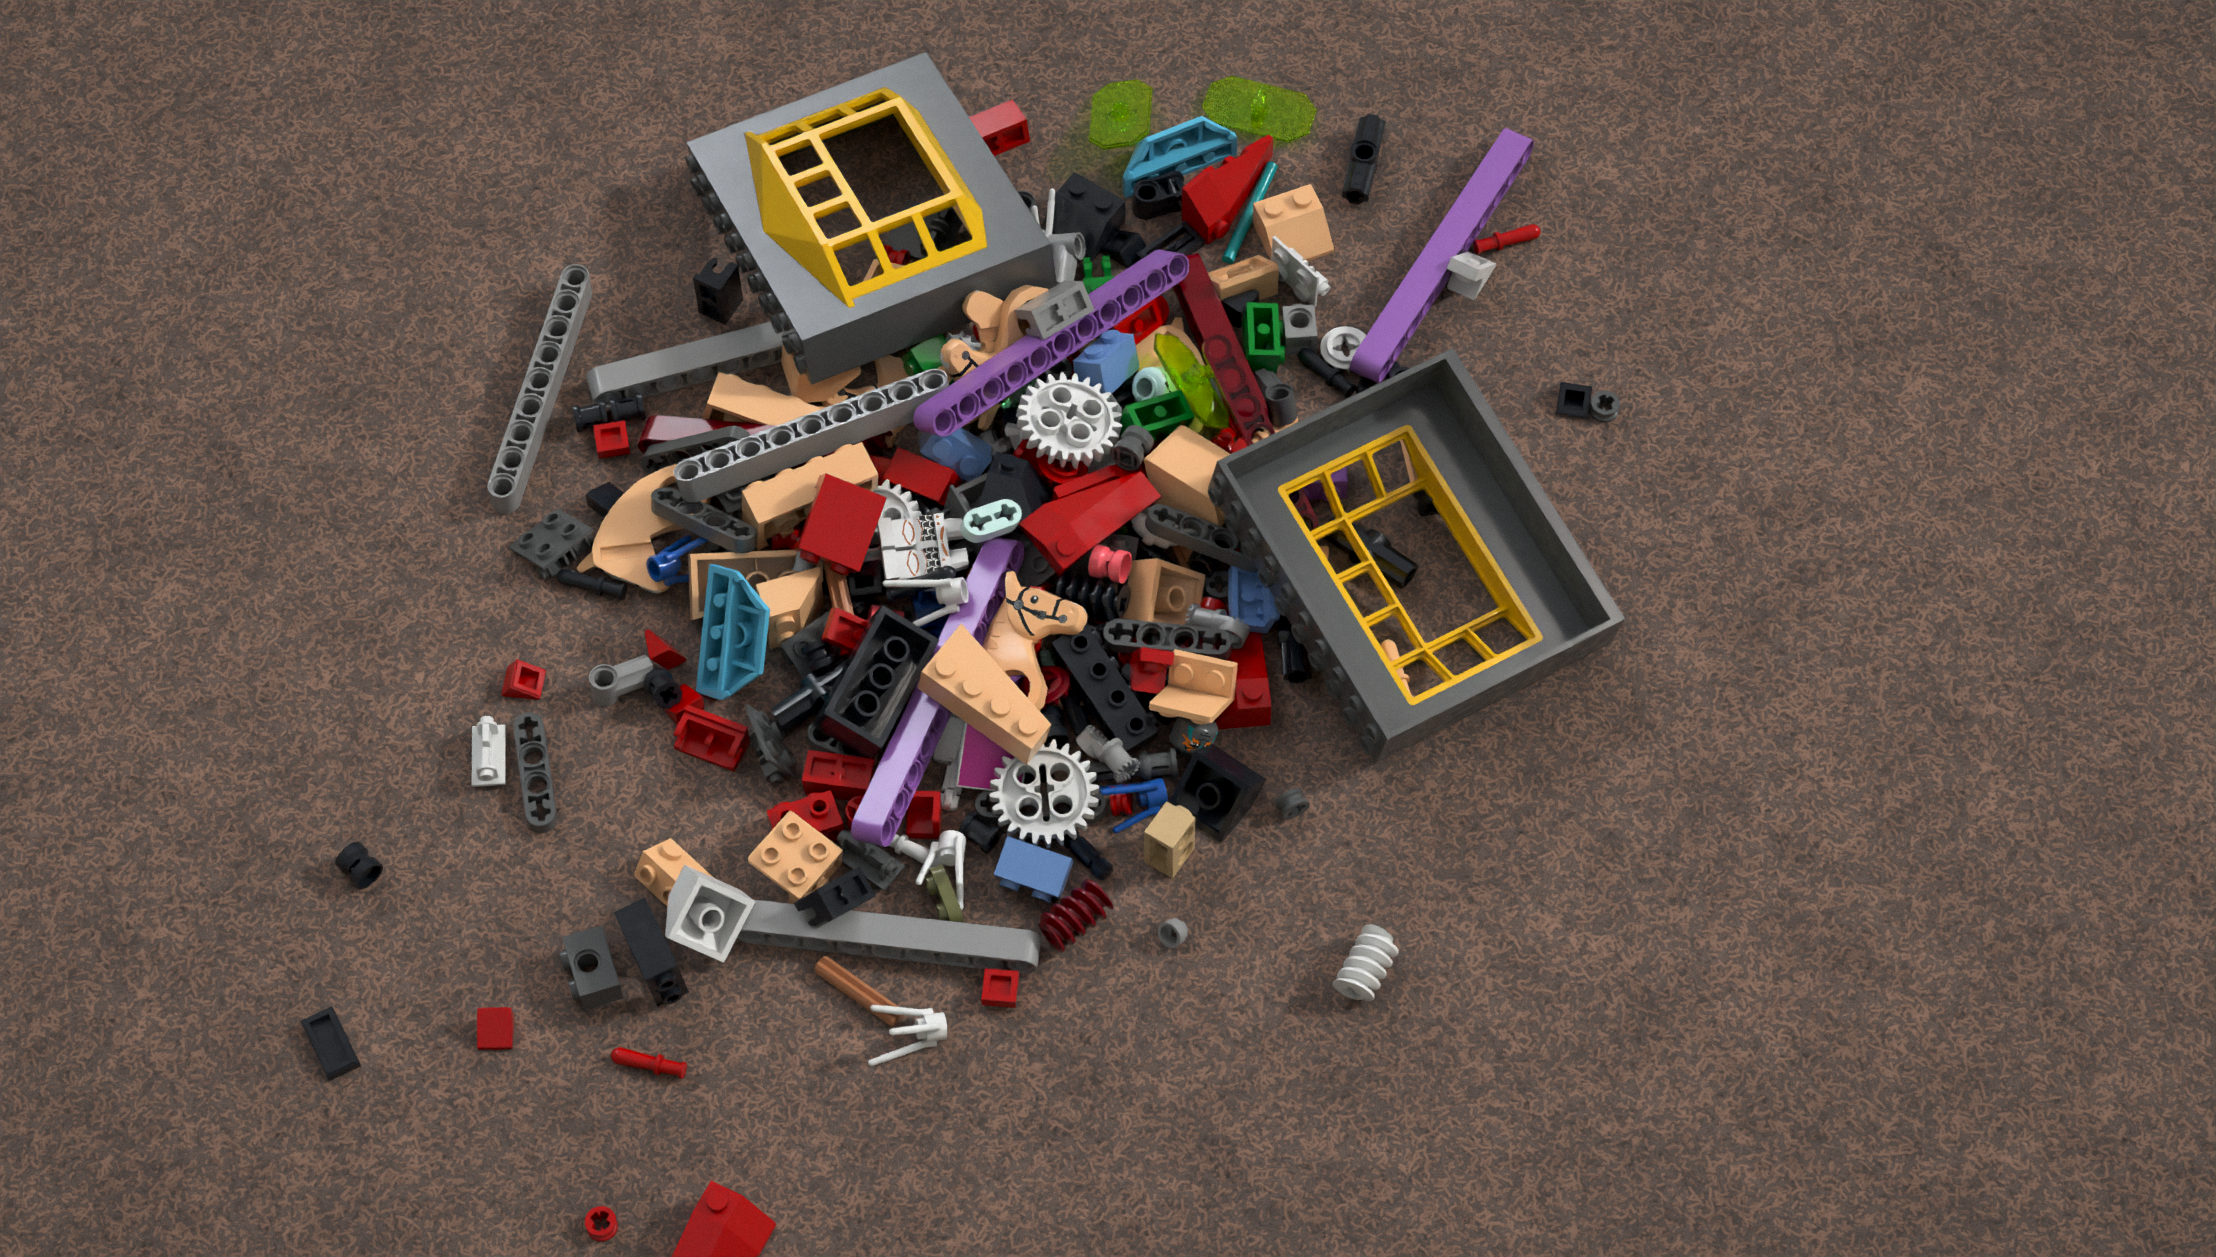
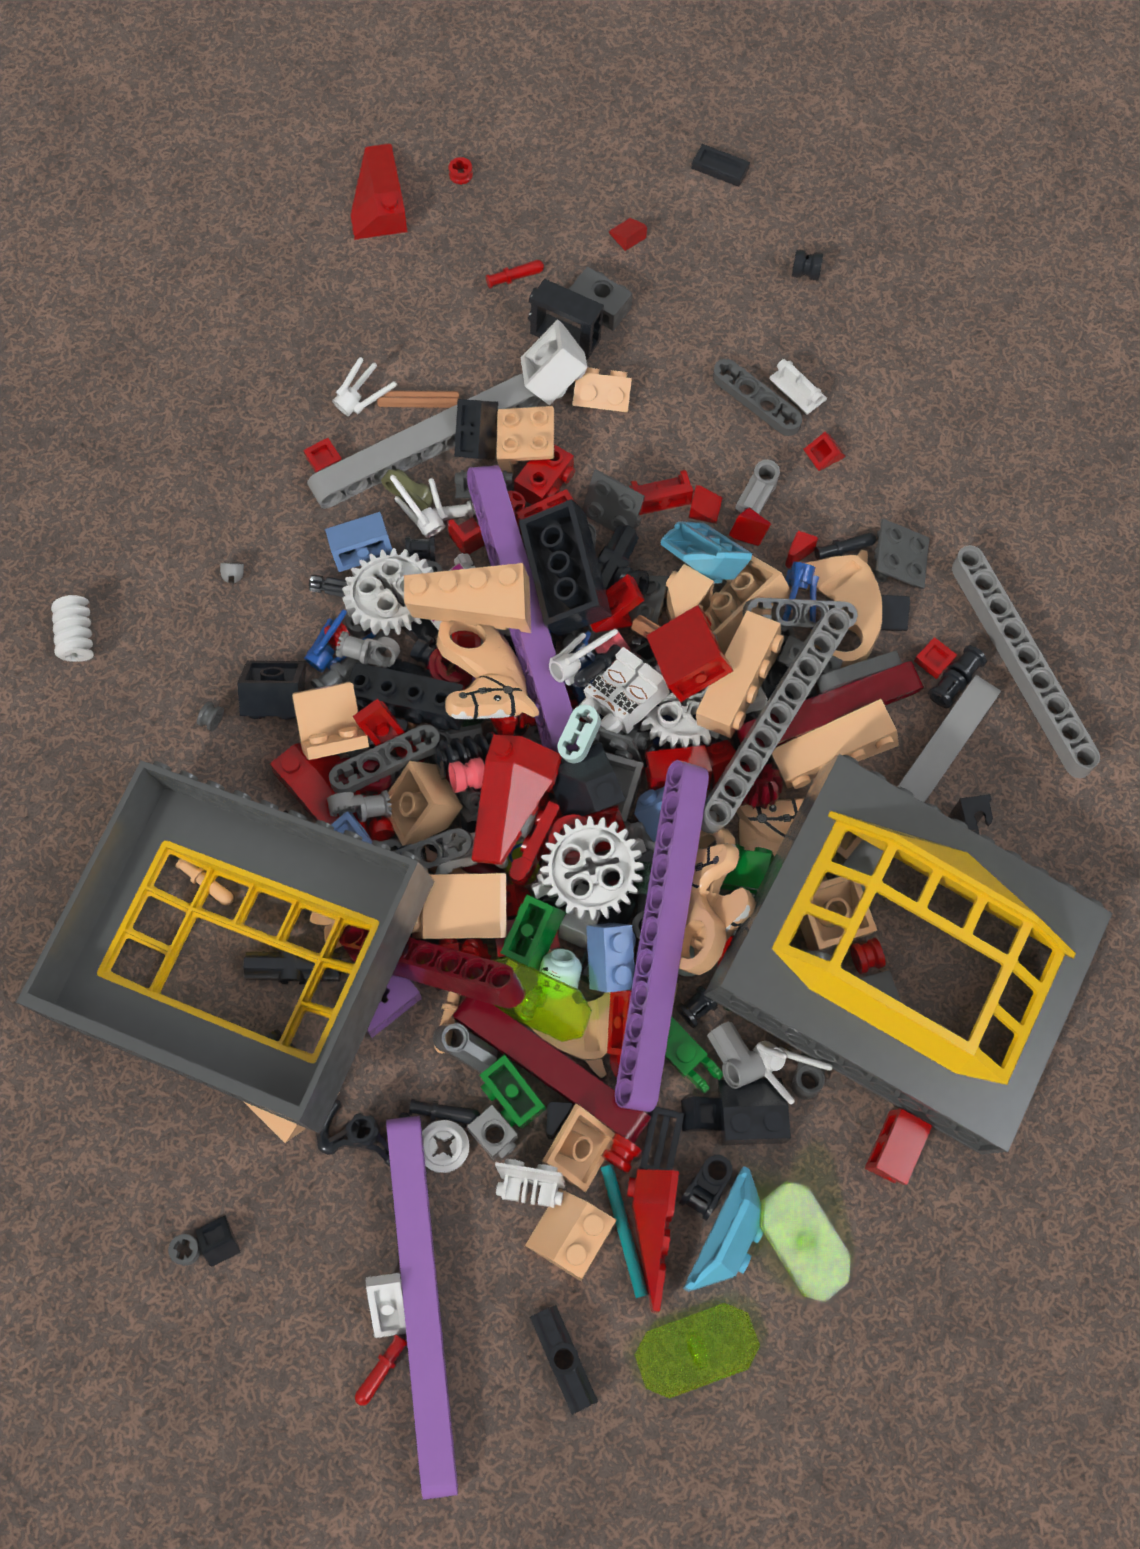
camera: 140 degrees right, 10 degrees up
(638, 602) = (801, 547): none -> red slope
(663, 688) = (723, 497): black bush -> none
(1055, 309) = (677, 947): light grey hinge -> none
(1073, 913) = (306, 529): dark red piece -> none
(1128, 451) = (523, 878): dark grey wheel -> none
(1169, 839) = (274, 617): tan brick -> none
(1211, 253) = (621, 1153): none -> red wheel

